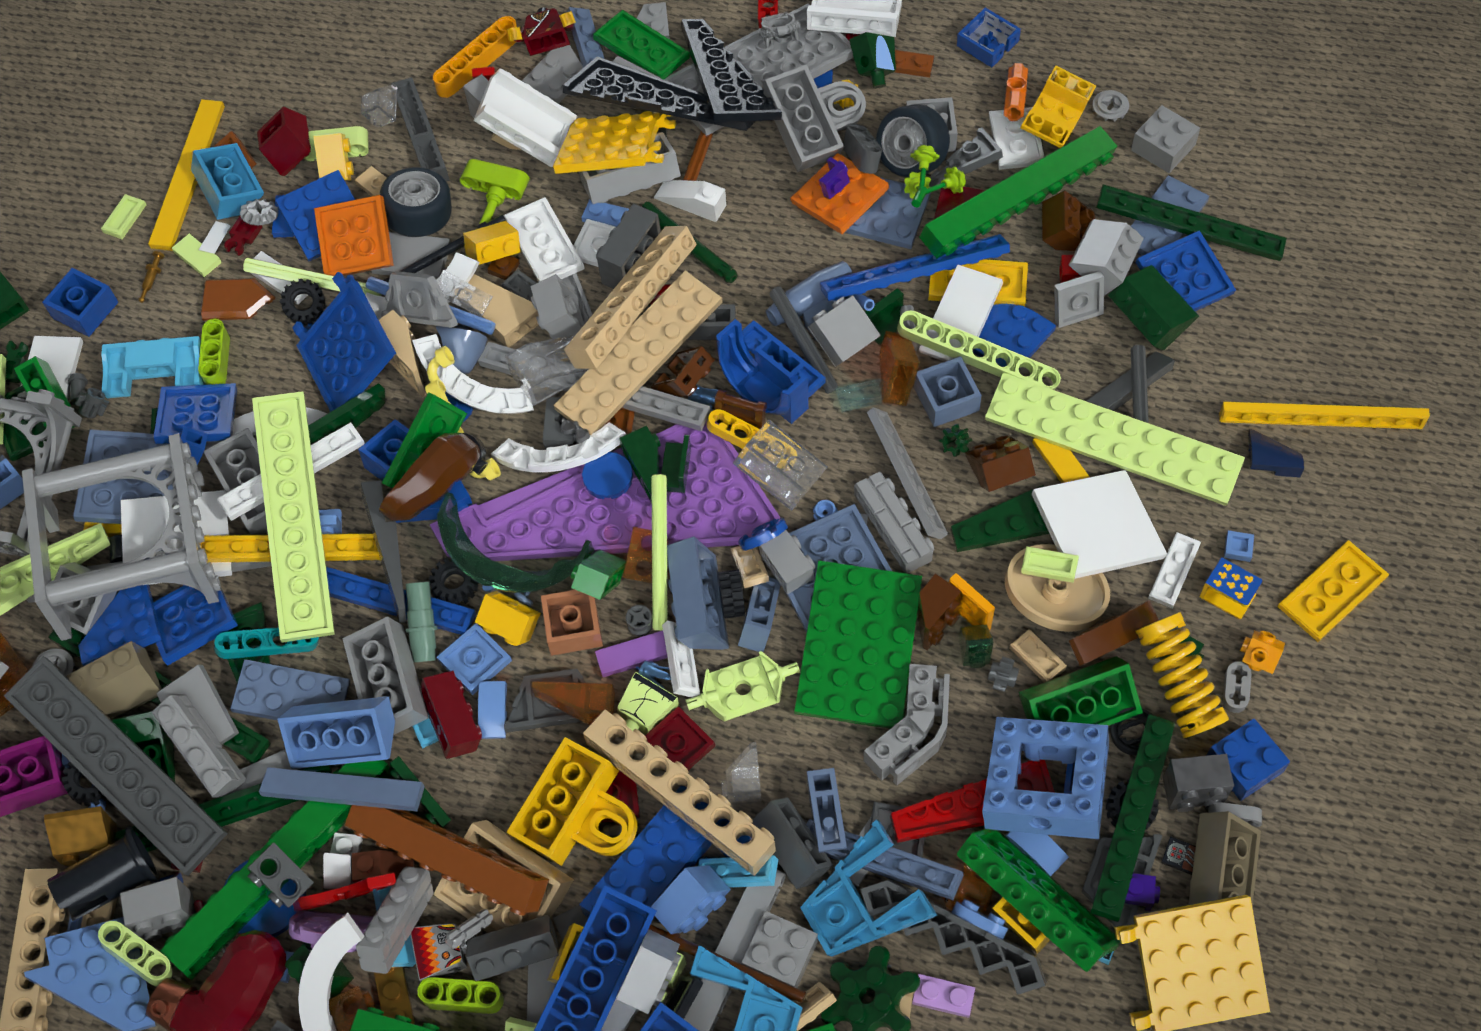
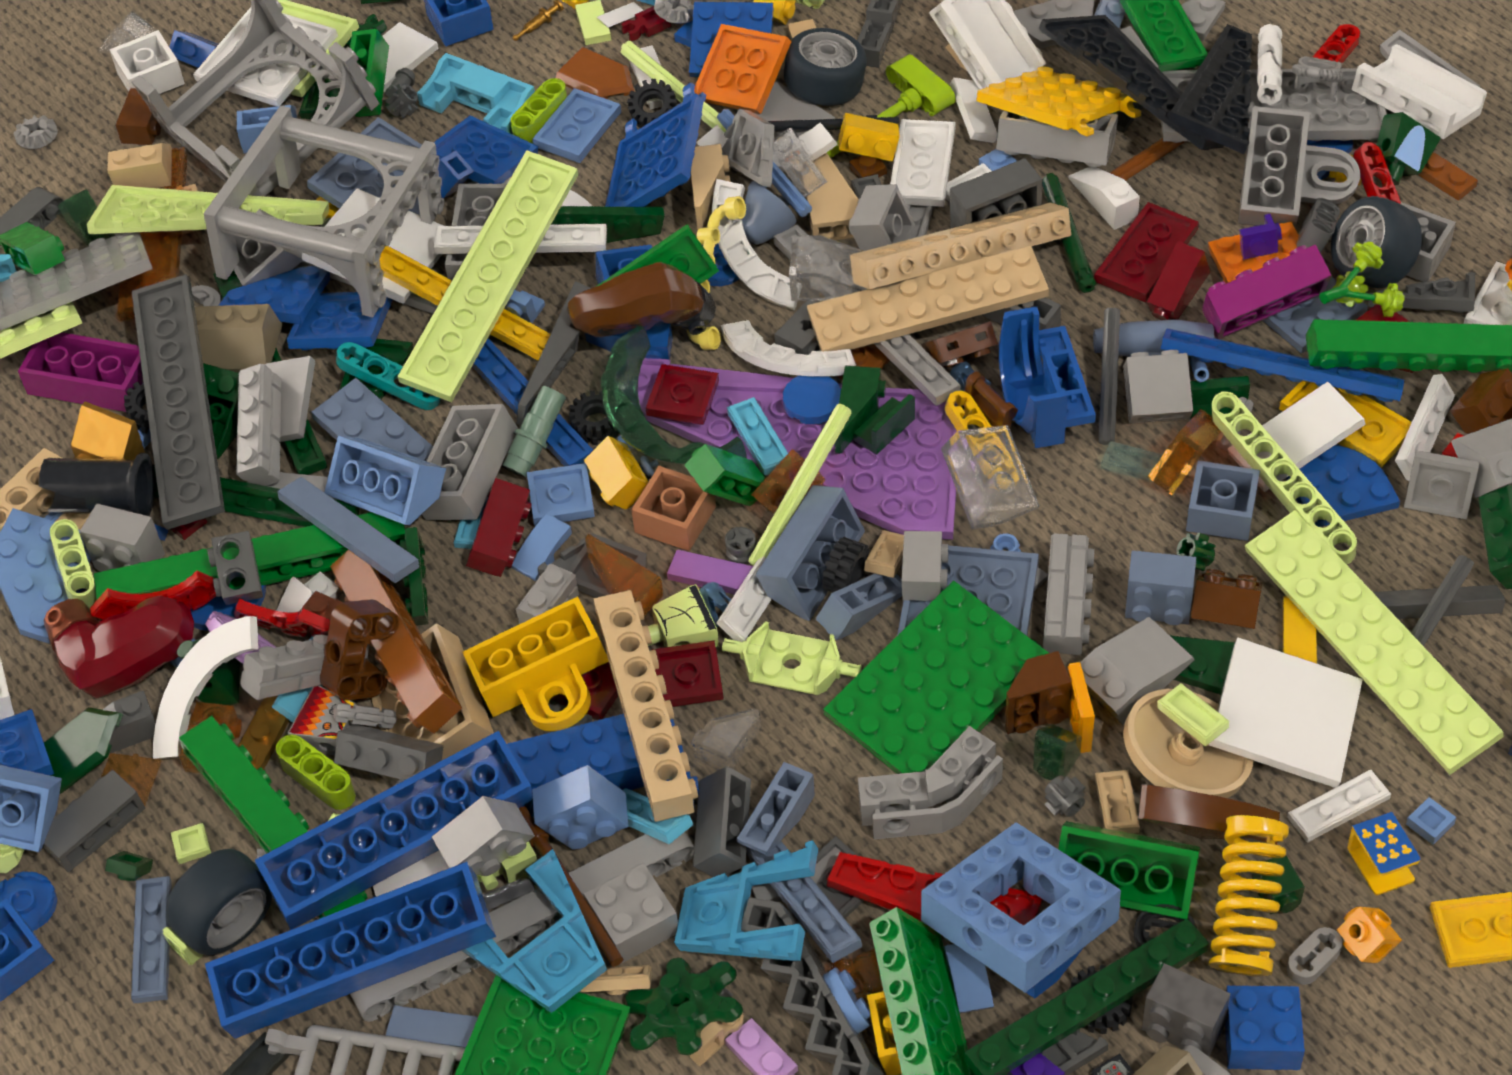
camera: 35 degrees right, 10 degrees down
(203, 963) = (193, 592): none -> red tile
(252, 349) = (577, 125): none -> medium blue plate
(429, 899) = (344, 662): none -> reddish brown beam
(510, 527) = (682, 394): none -> dark red plate
(531, 749) = (550, 590): none -> light grey brick
(548, 180) = (974, 113): none -> white tile
(569, 427) = (810, 335): flat silver piece -> none
(591, 527) = (757, 434): none -> medium azure tile
(736, 37) = (1269, 57): none -> white piece
(754, 228) = (1144, 251): none -> dark red plate
(763, 534) = (911, 523): blue tile -> none
(797, 242) = (1178, 282): none -> dark red slope
(869, 217) = (1266, 291): none -> magenta brick
(884, 102) = (1372, 163): none -> red beam
(907, 474) = (1117, 557): light grey tile -> none
(957, 482) = (1160, 587): none -> sand blue brick
(982, 551) = (1133, 666): none -> light grey slope
(1034, 261) = (1425, 423): none -> white tile

